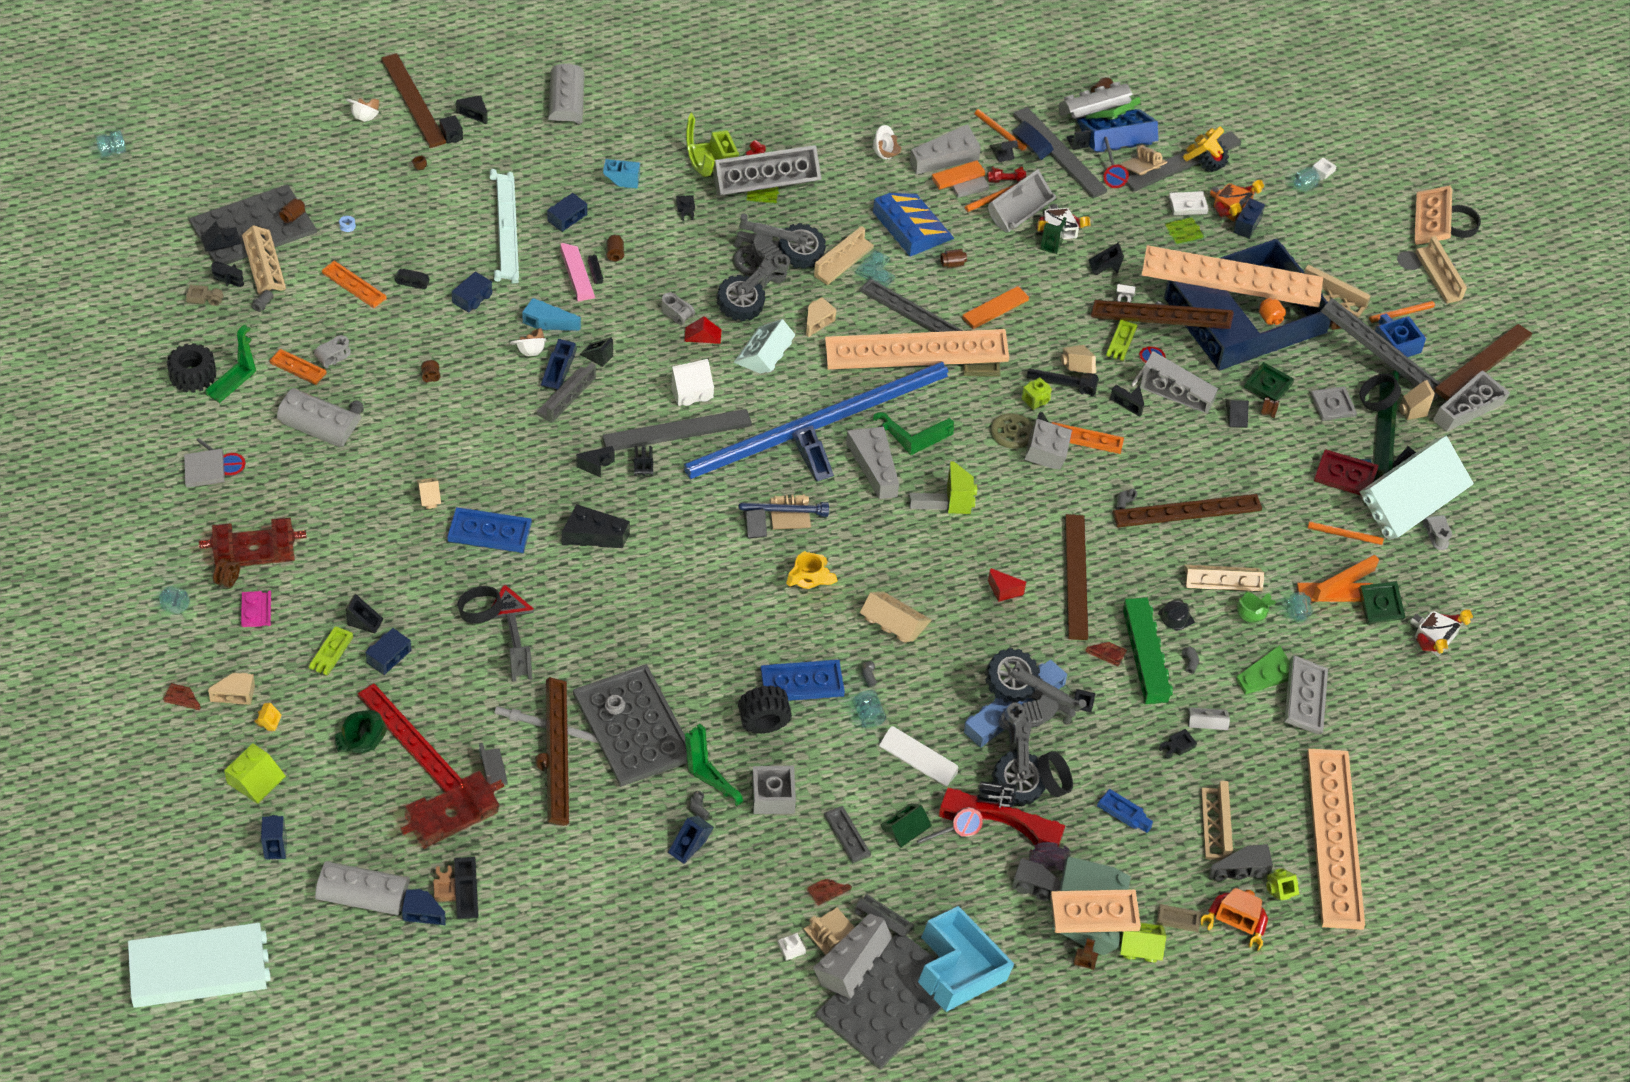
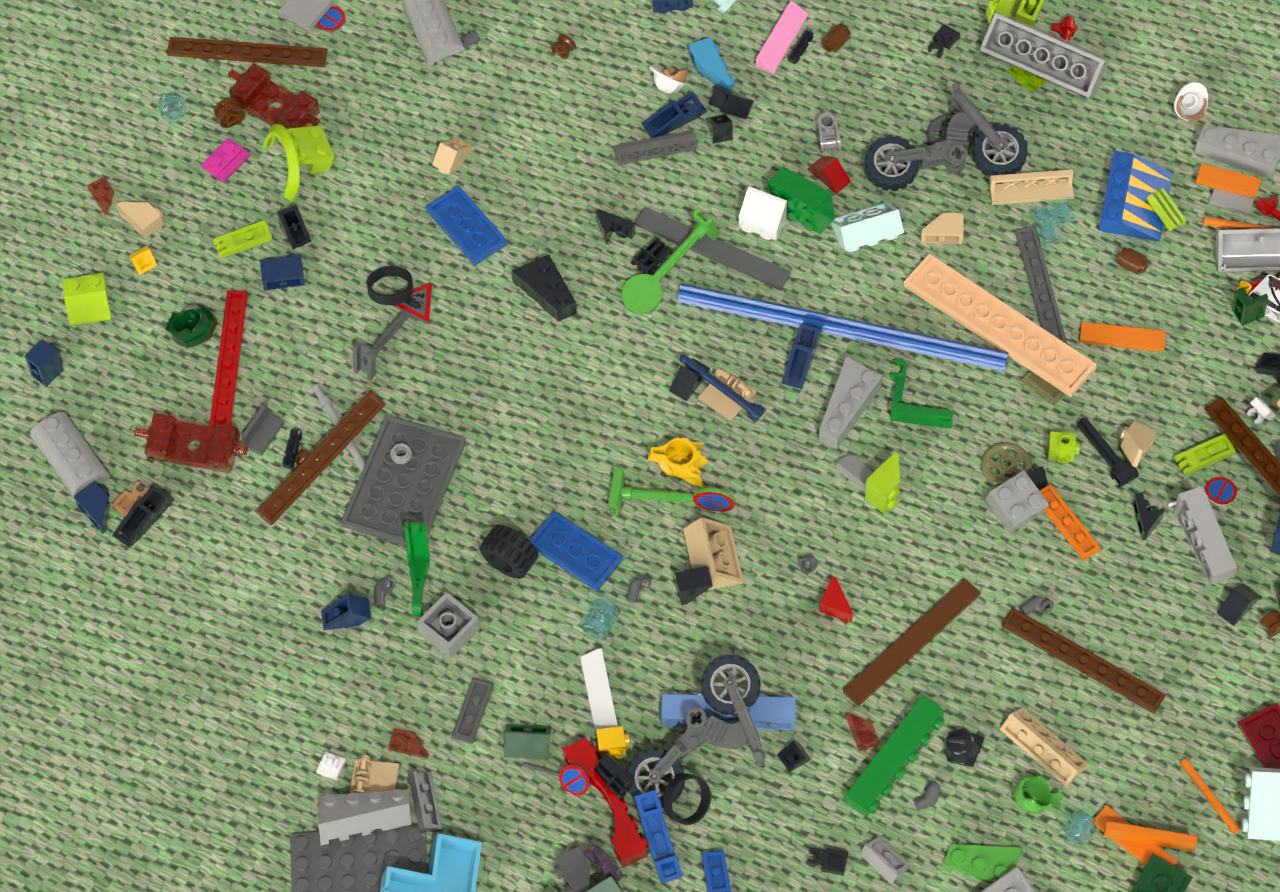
camera: 50 degrees right, 10 degrees up
(189, 527) = (247, 52): none -> reddish brown tile
(319, 552) = (302, 147): none -> lime piece
(526, 762) = (292, 448): none -> black axle
(588, 331) = (731, 102): none -> black slope
(663, 488) = (644, 292): none -> bright green piece
(718, 349) = (805, 200): none -> green piece
(857, 581) = (705, 498): none -> bright green piece
(906, 640) = (693, 583): none -> black slope
(940, 215) = (1168, 208): none -> lime tile
(964, 576) = (808, 558): none -> dark grey hinge
(964, 778) = (612, 741): none -> yellow brick
(1051, 809) = (657, 836): none -> blue slope

